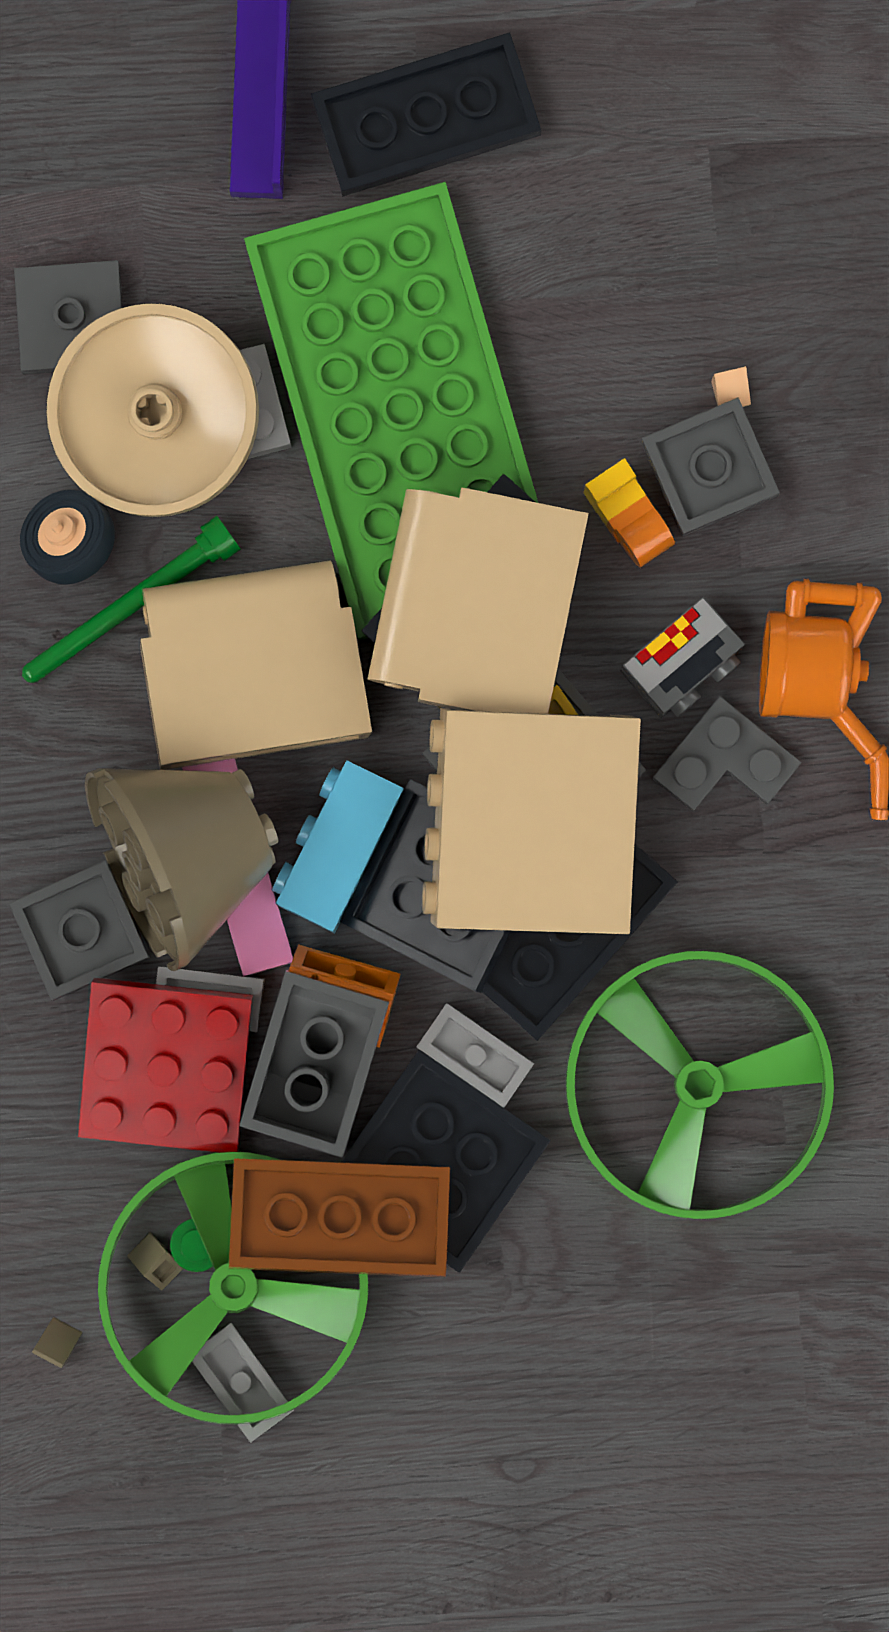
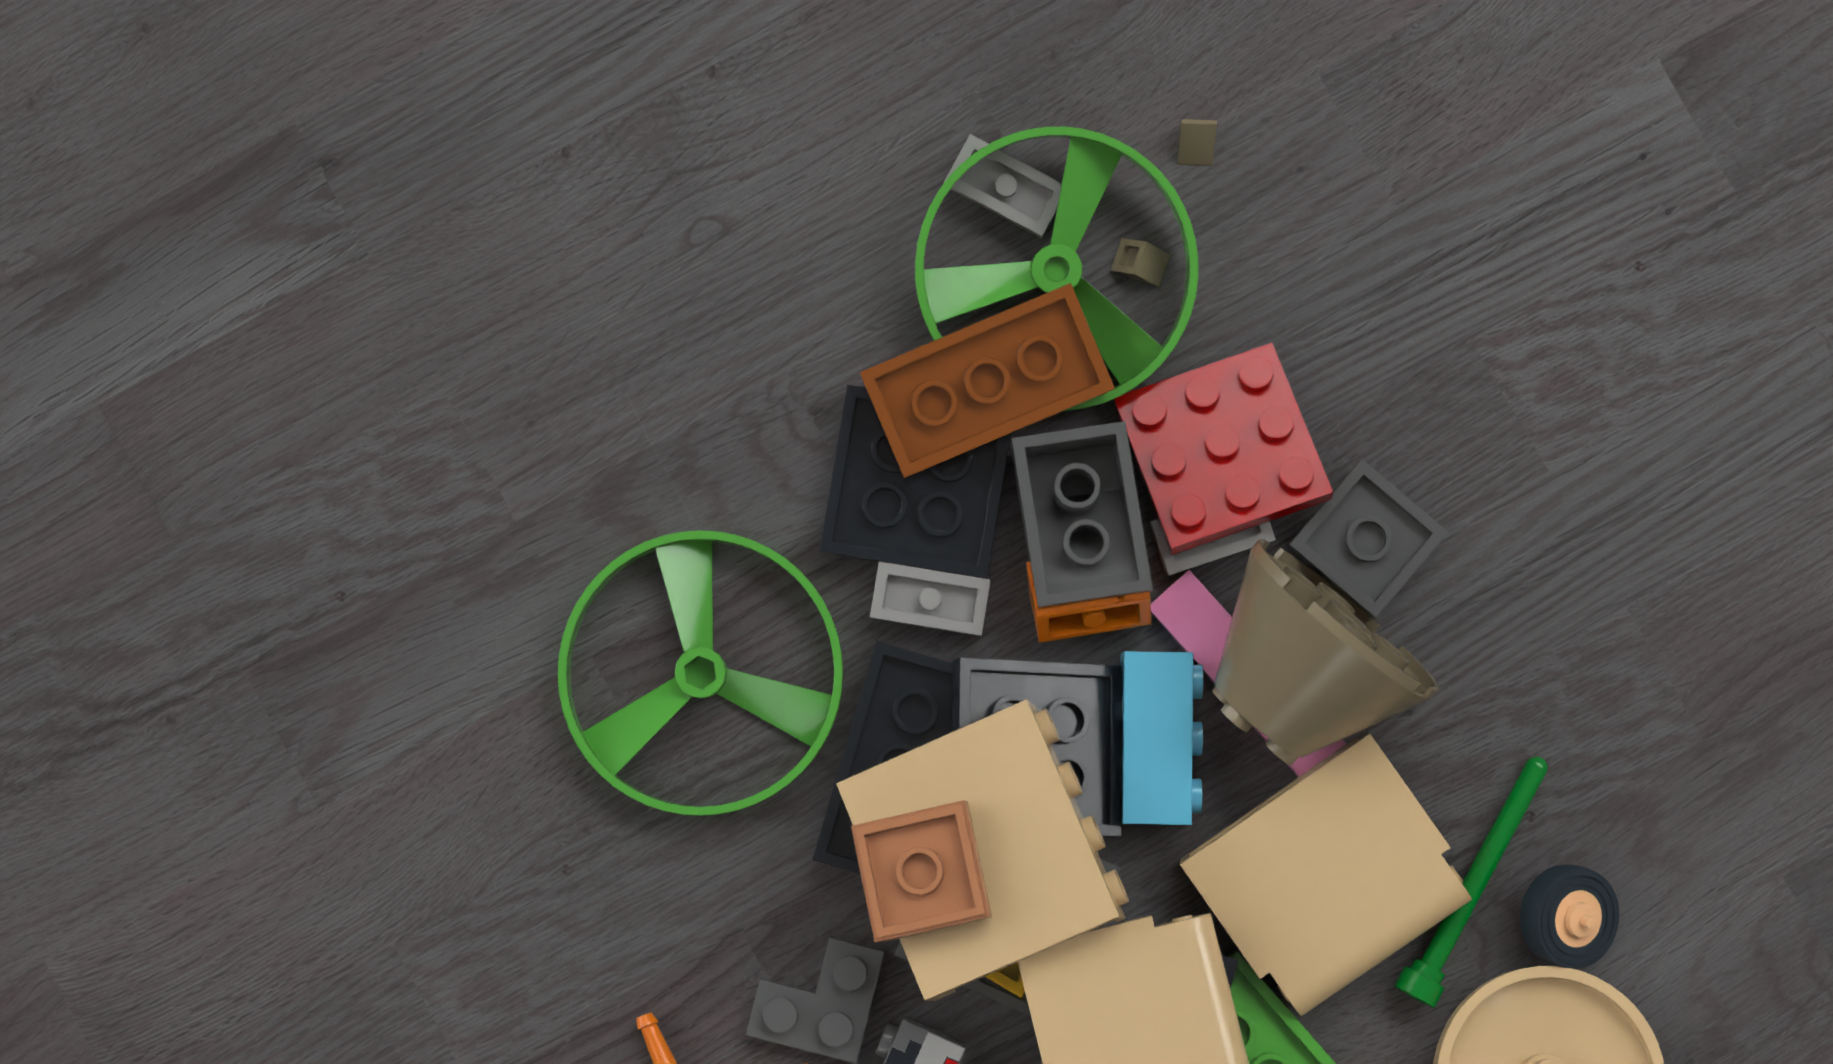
camera: 150 degrees right, 0 degrees up
(188, 1248) = (1116, 287): green plate -> none
(593, 825) = (921, 871): none -> nougat plate

